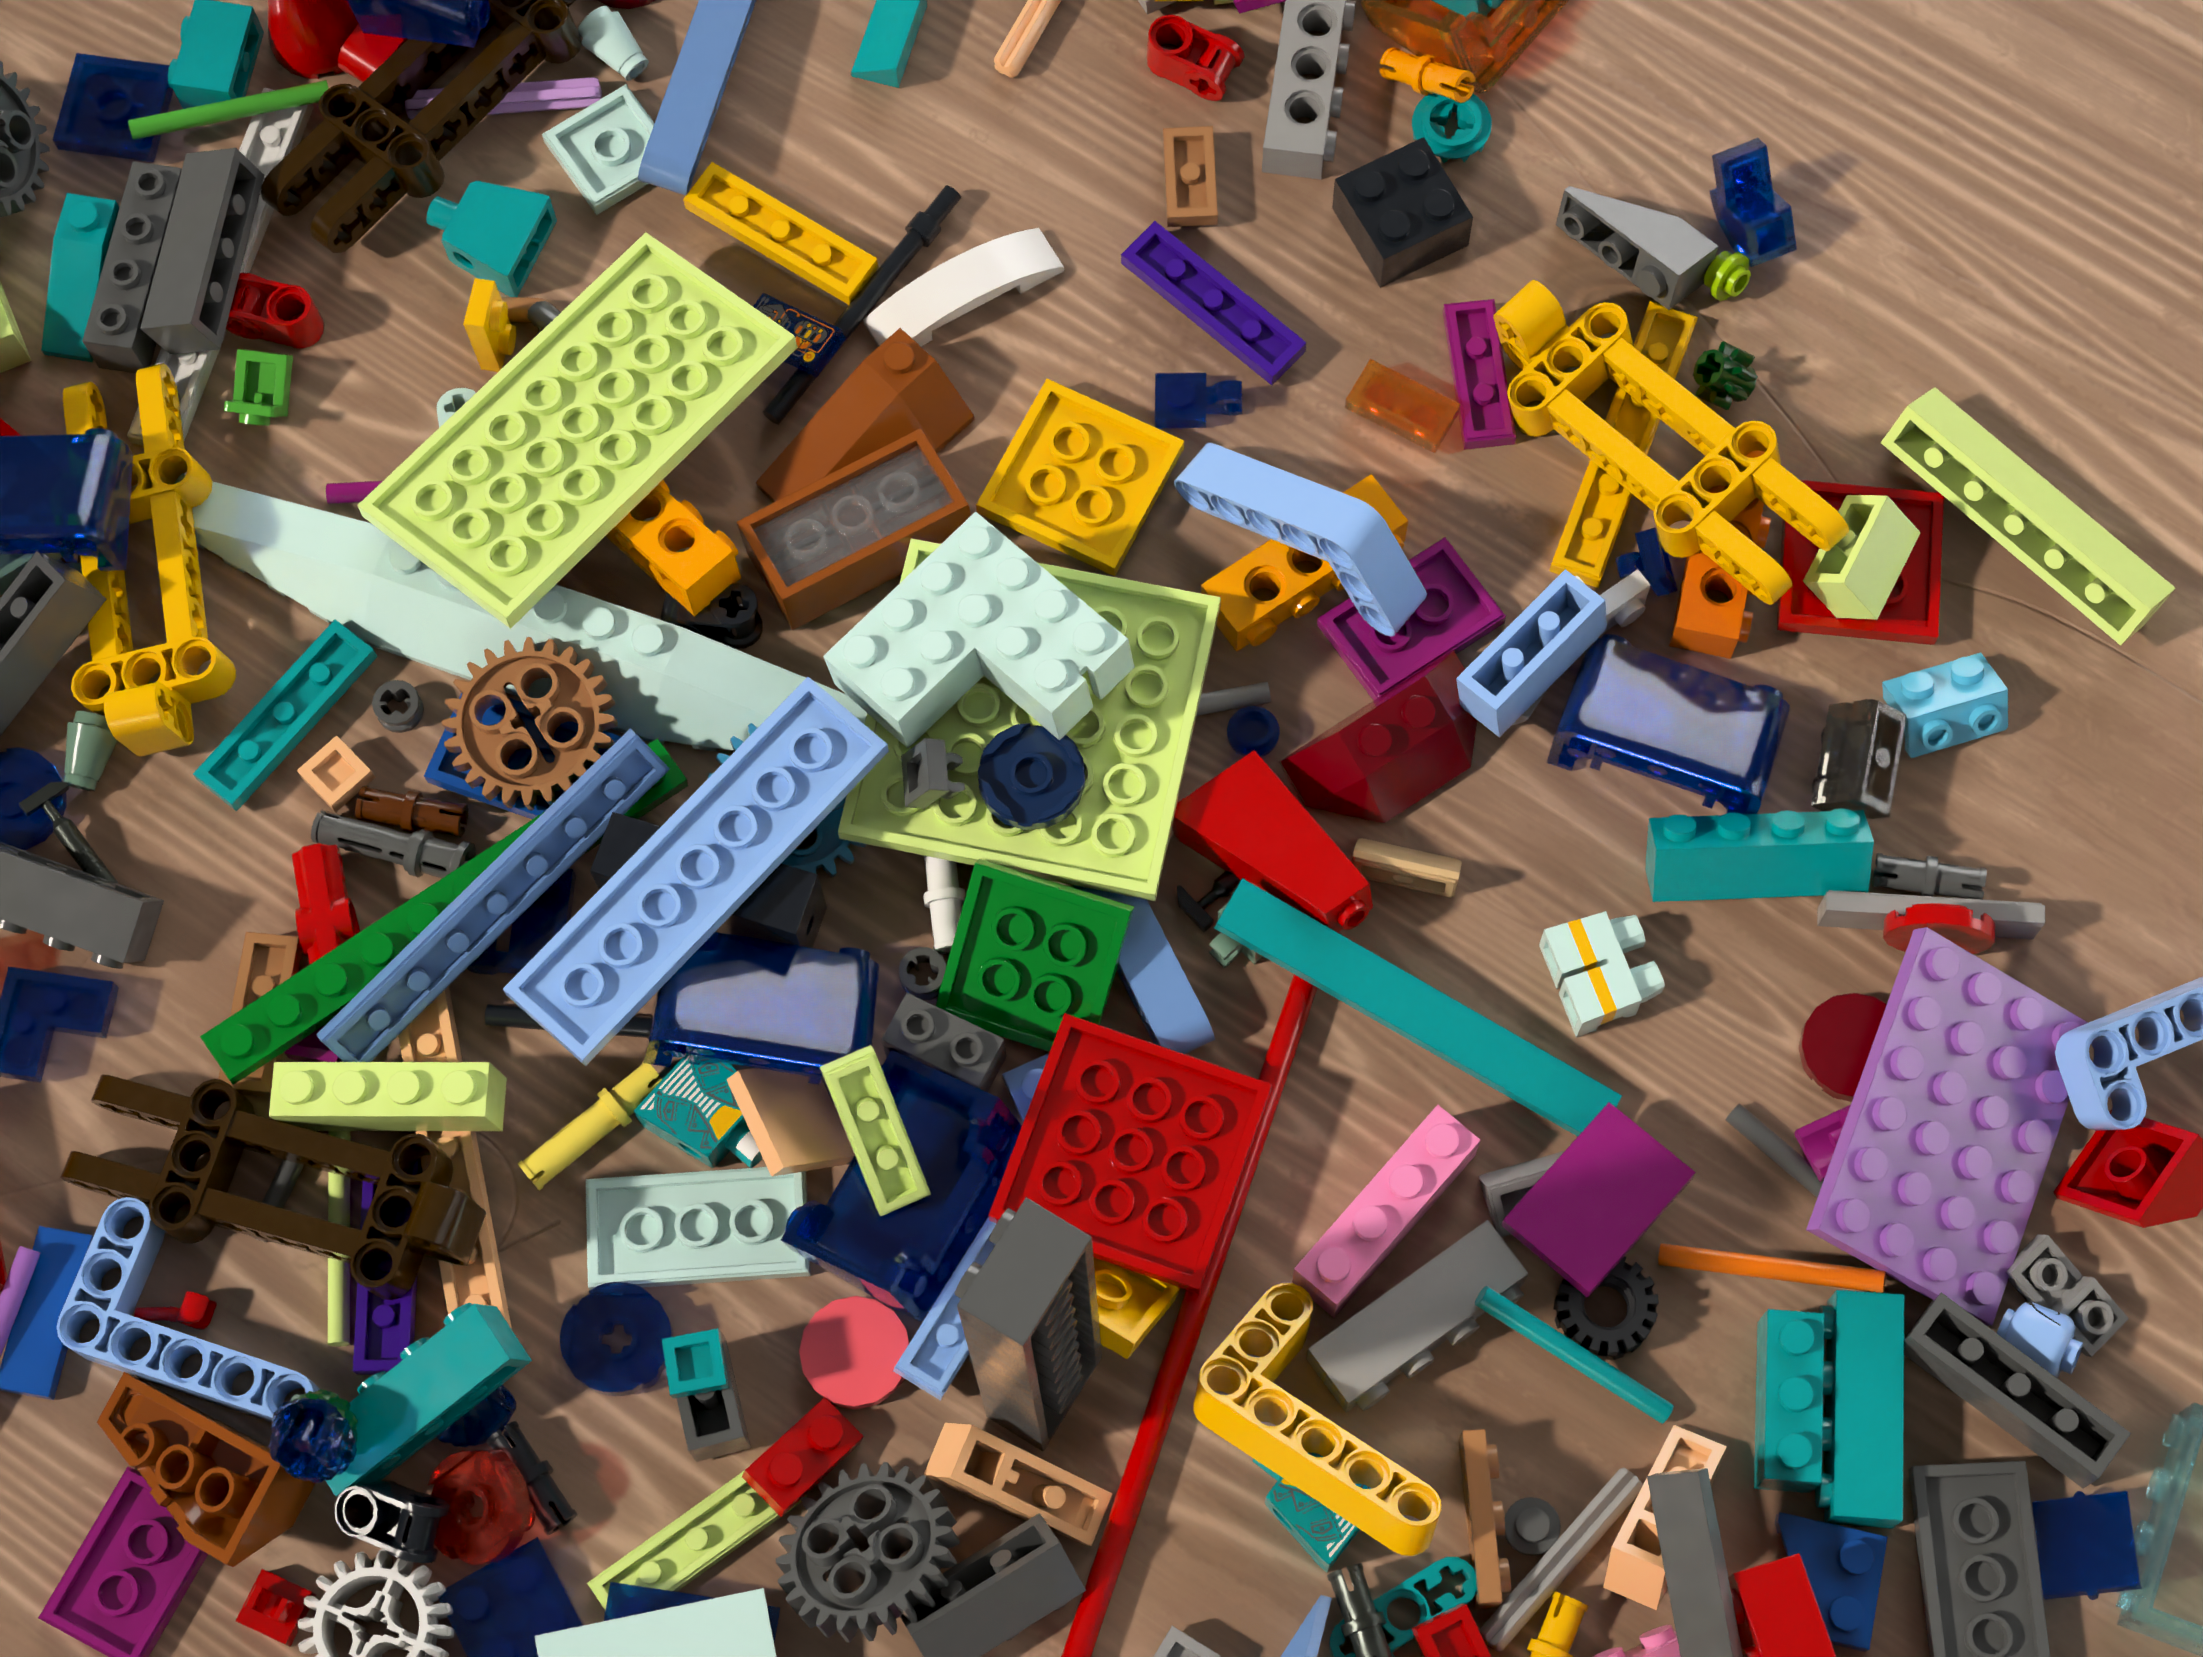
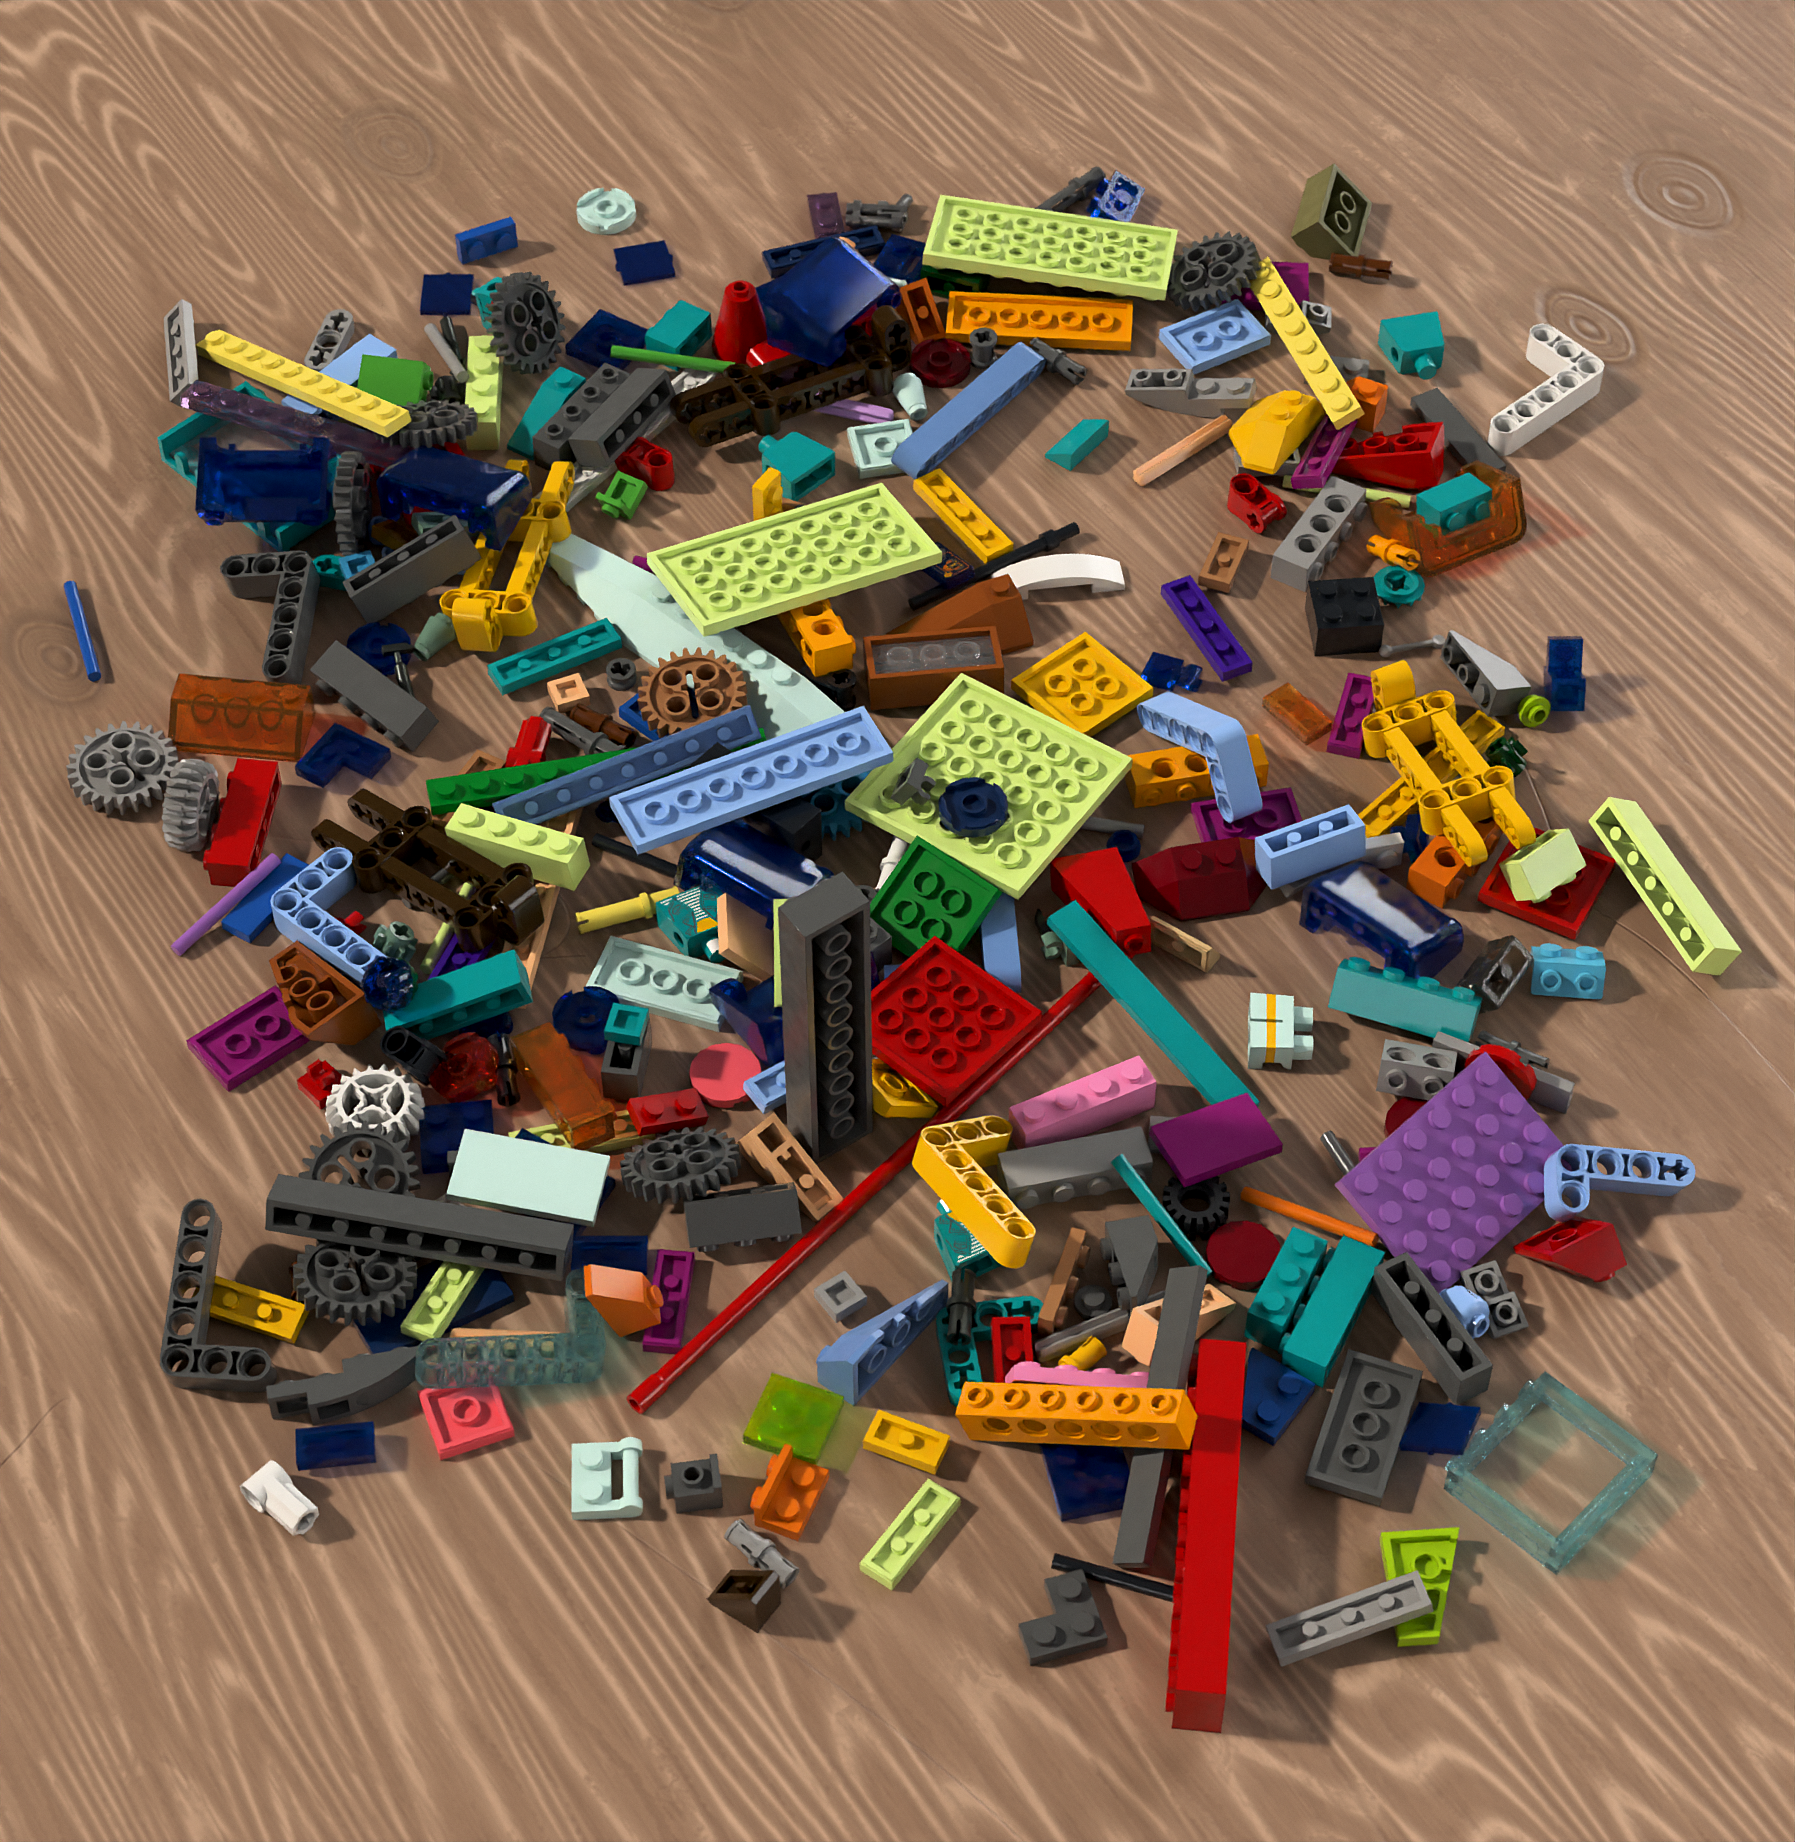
camera: 20 degrees right, 20 degrees down
(275, 1327) = (395, 940): none -> sand green gear
(637, 1483) = (564, 1087): none -> clear orange brick
(974, 614) = (976, 711): light aqua piece -> none
(1541, 200) = (1437, 642): none -> light grey hinge
(1561, 1435) = (1133, 1259): none -> dark grey slope
(1702, 1359) = (1242, 1254): none -> dark red tile
(1819, 965) = (1414, 1069): none -> light grey brick

